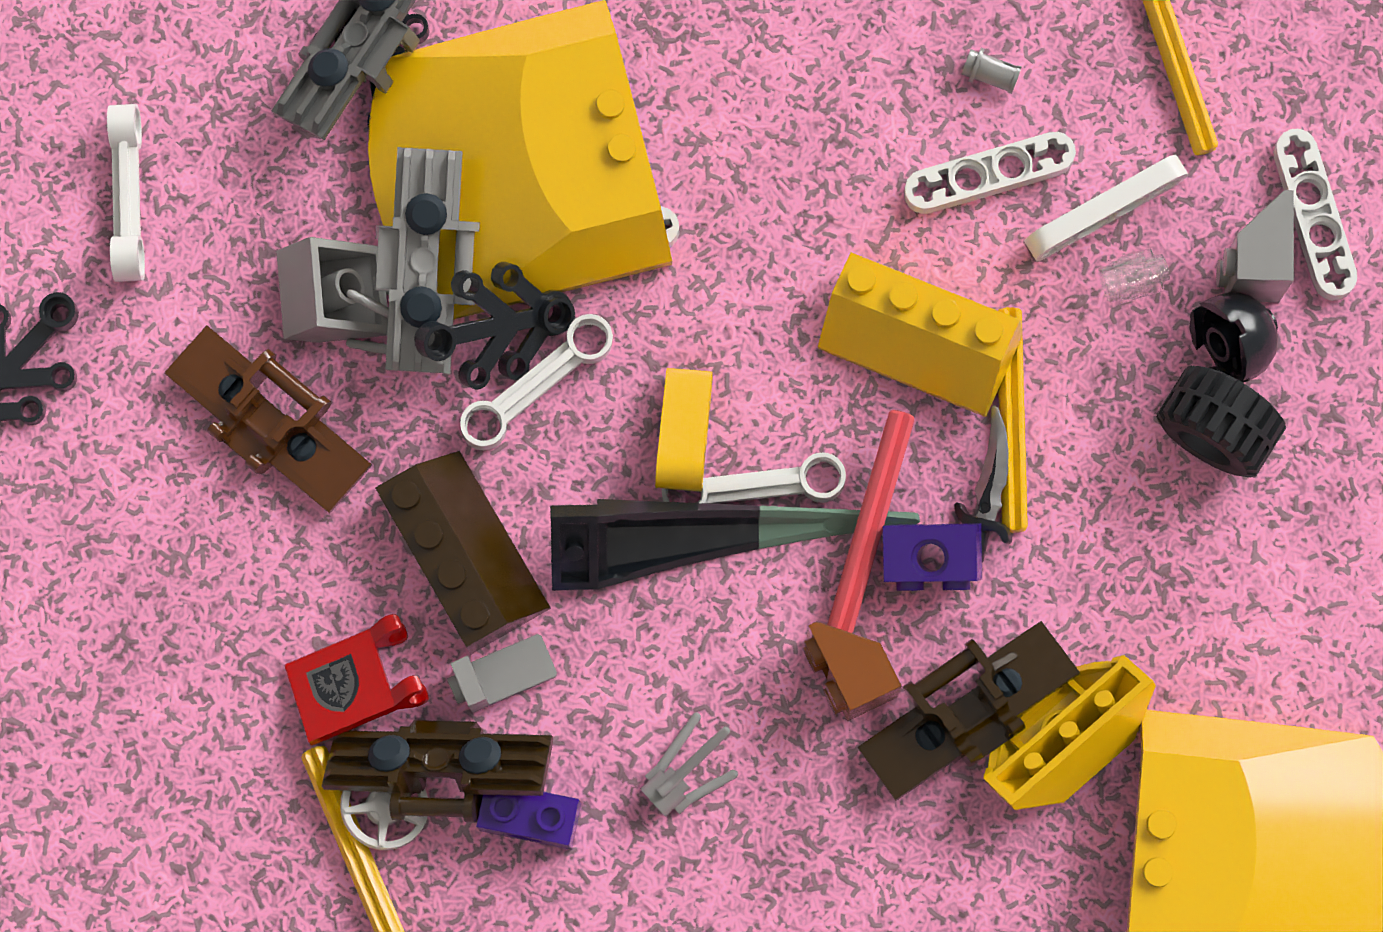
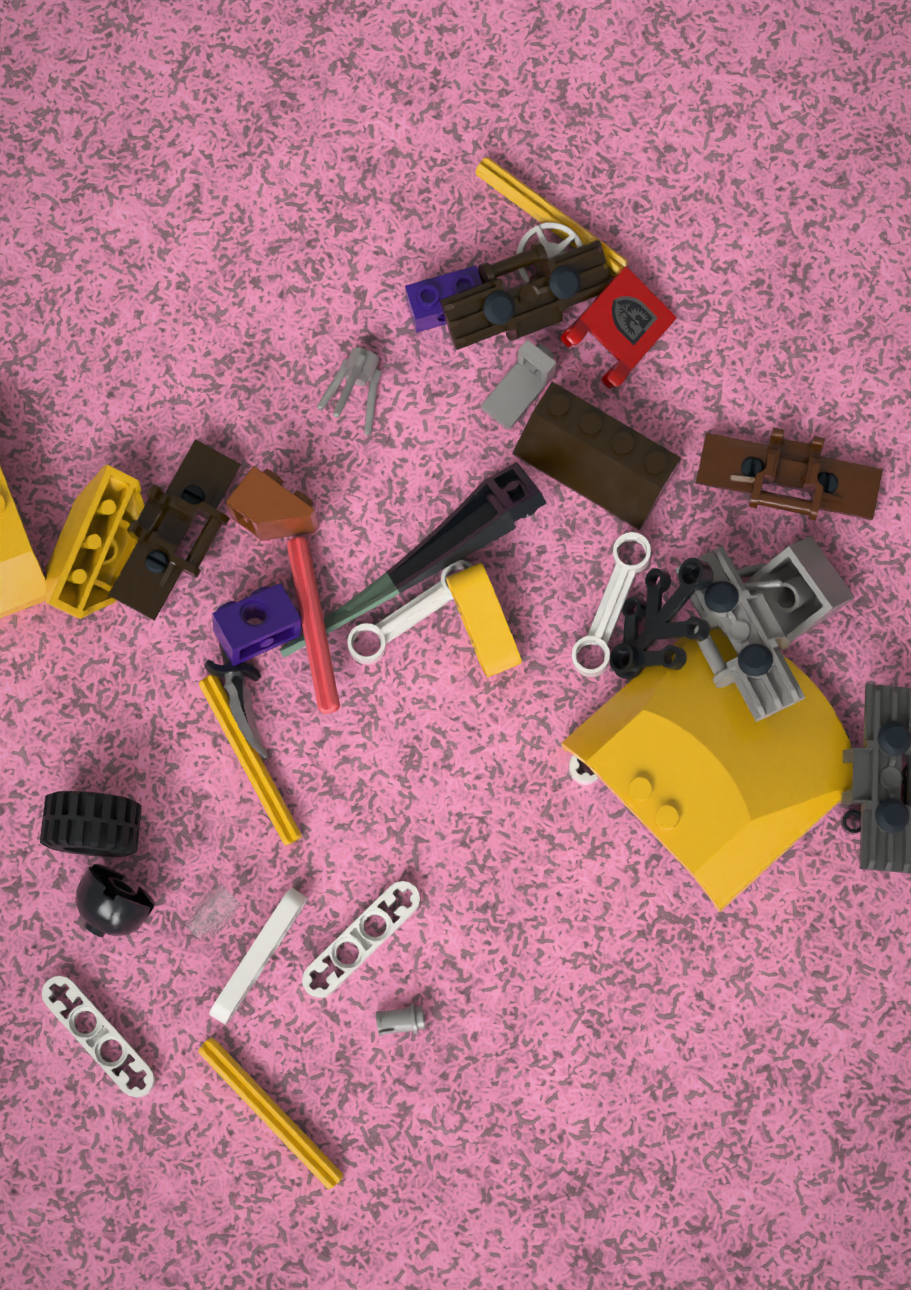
camera: 150 degrees right, 0 degrees up
(919, 334) = (349, 781): yellow slope -> none
(1262, 254) = (122, 971): light grey slope -> none

